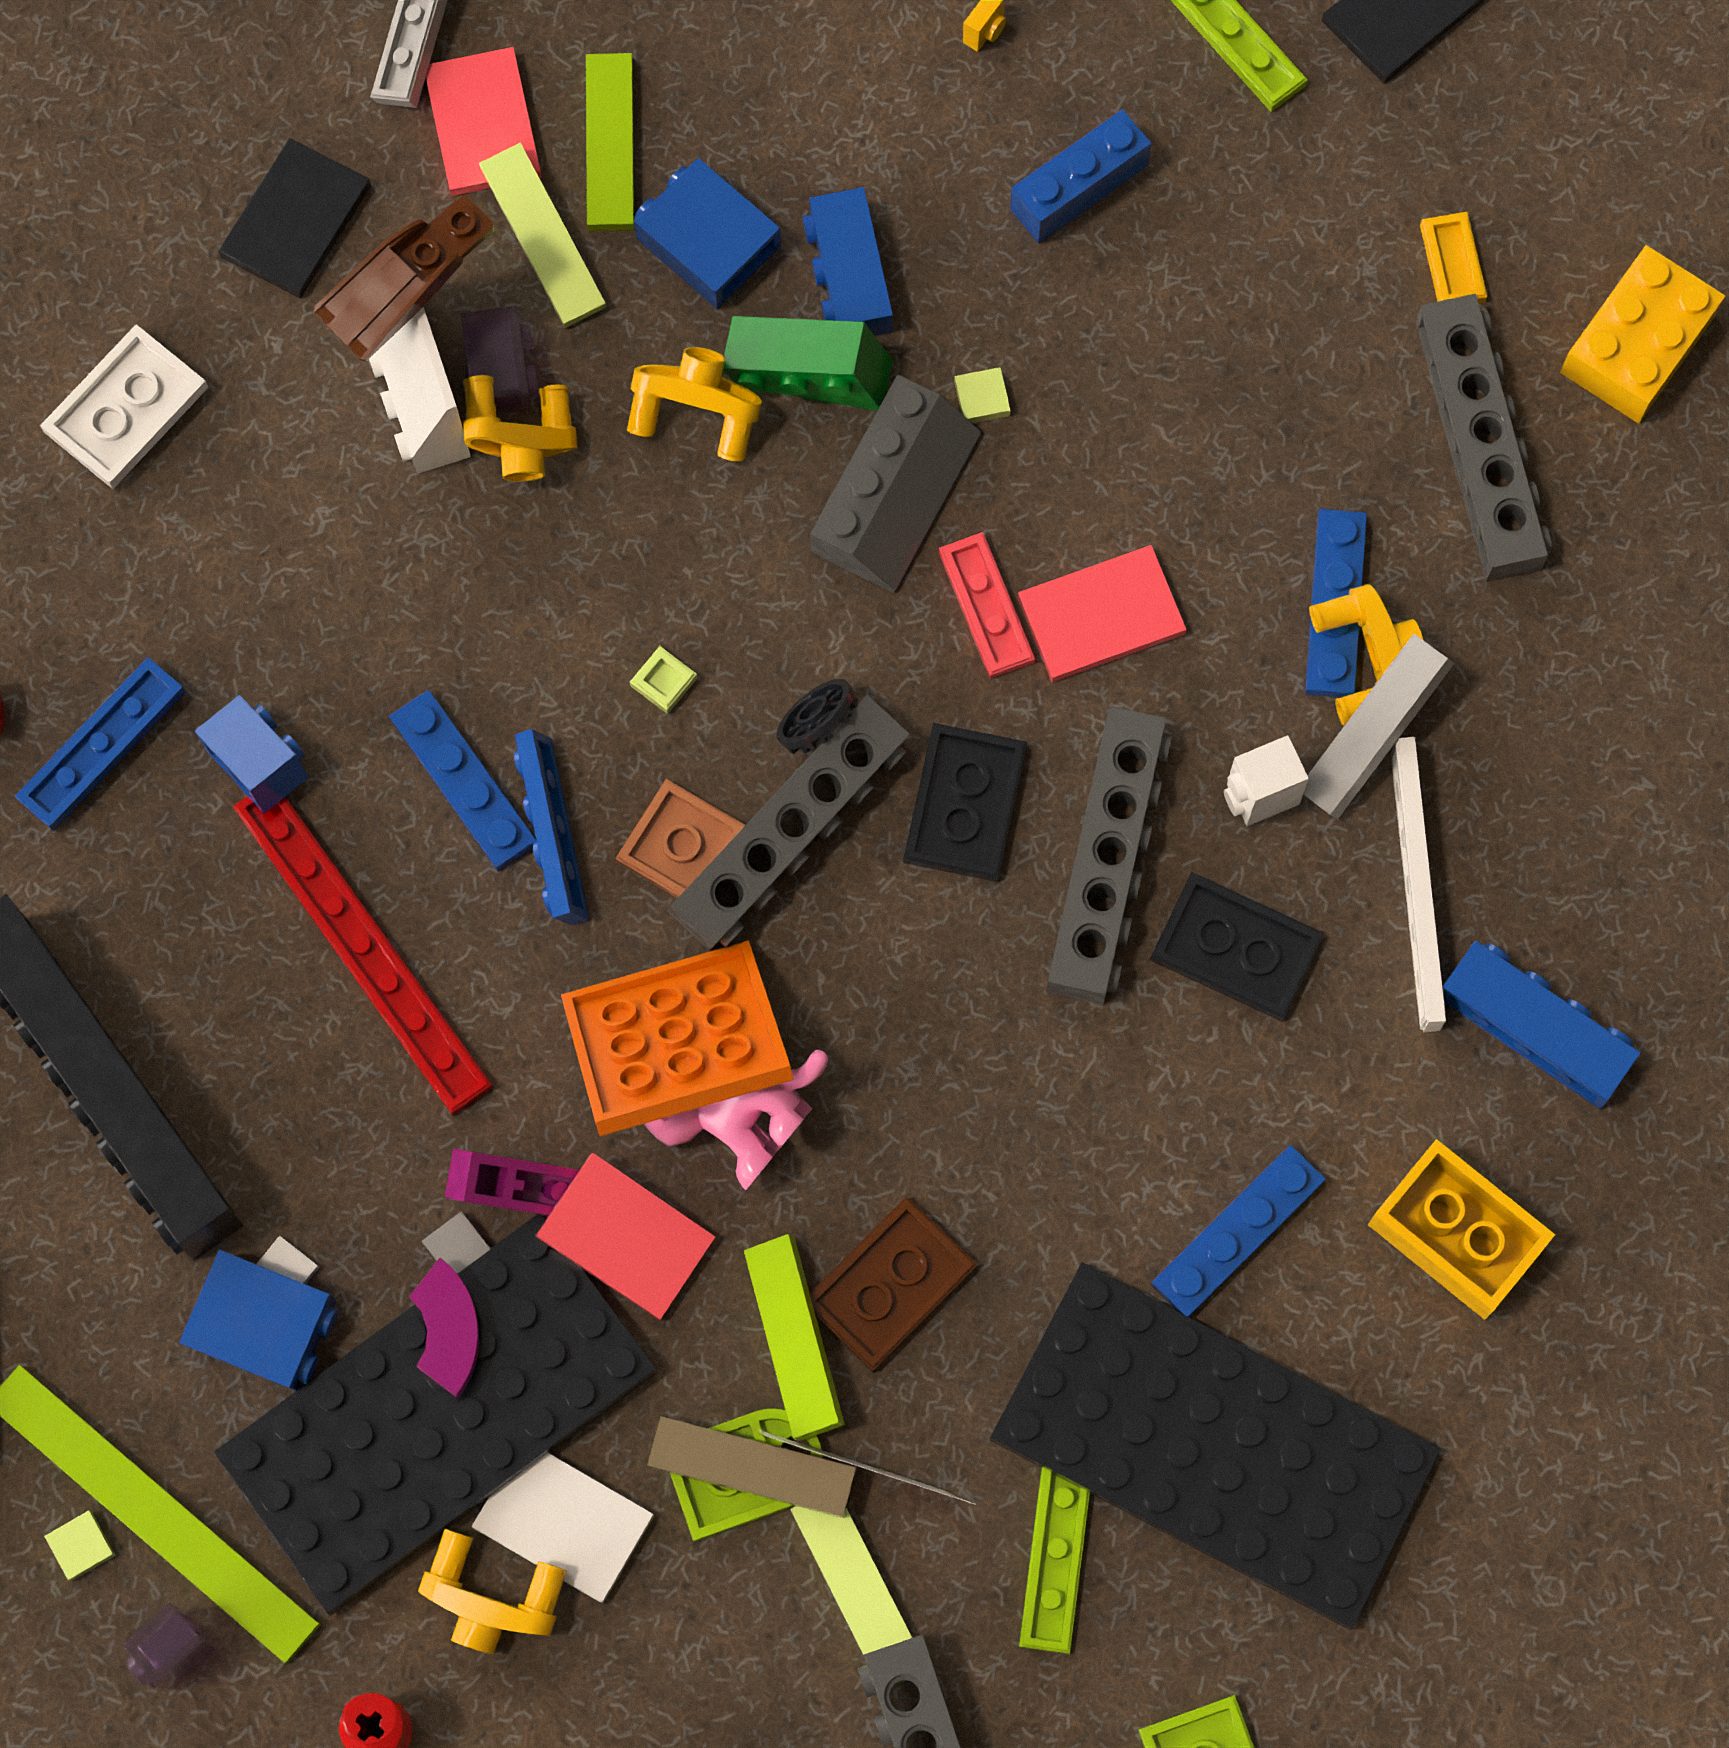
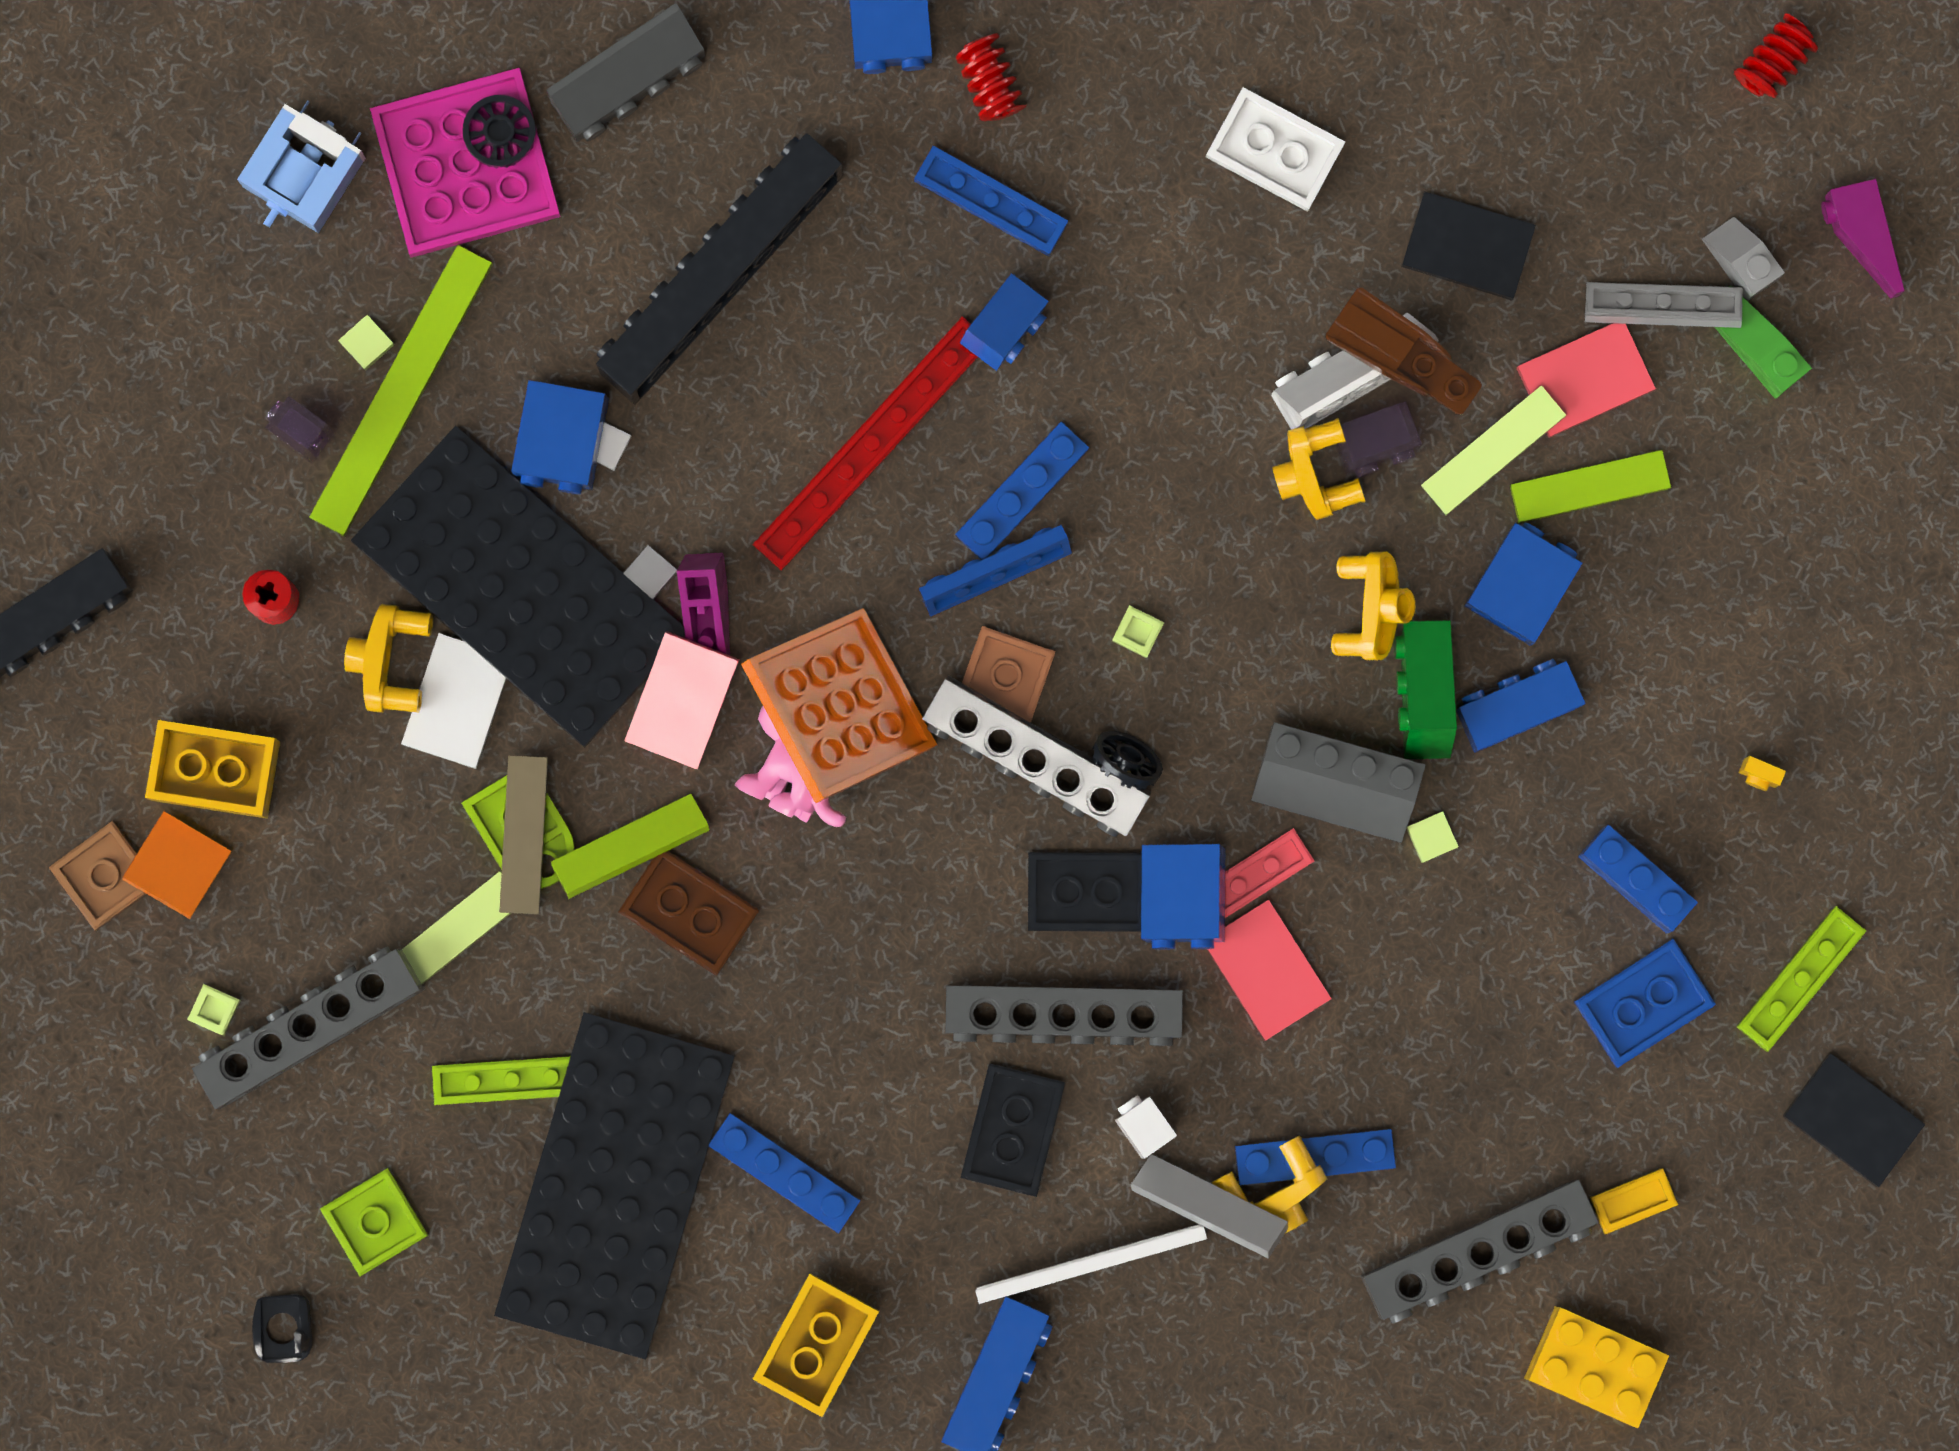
camera: 70 degrees right, 10 degrees up
(451, 1328) = (581, 583): magenta tile -> none
(860, 1465) = (542, 917): white sticker -> none
(994, 684) = (1183, 895): none -> blue brick
(1225, 203) = (1644, 1003): none -> blue tile

